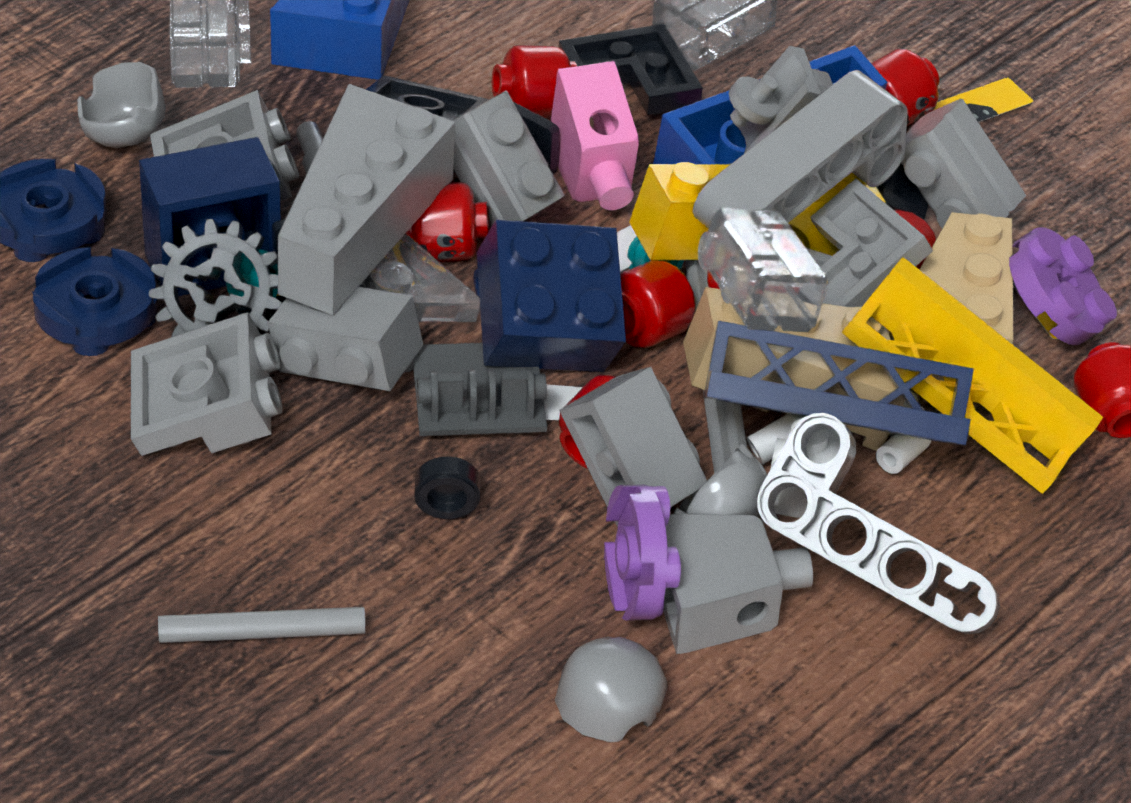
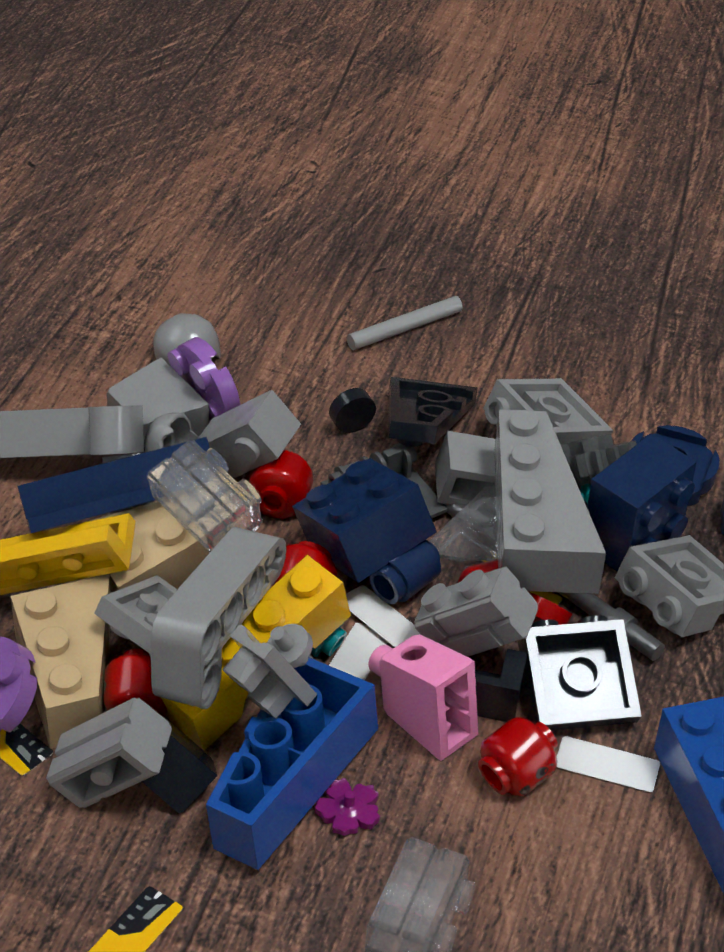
camera: 155 degrees right, 0 degrees up
(362, 439) = (425, 409): none -> black wing
(424, 69) = (607, 764): none -> white sticker
(646, 60) = (462, 824): black plate -> none
(911, 81) = (208, 874): red head -> none

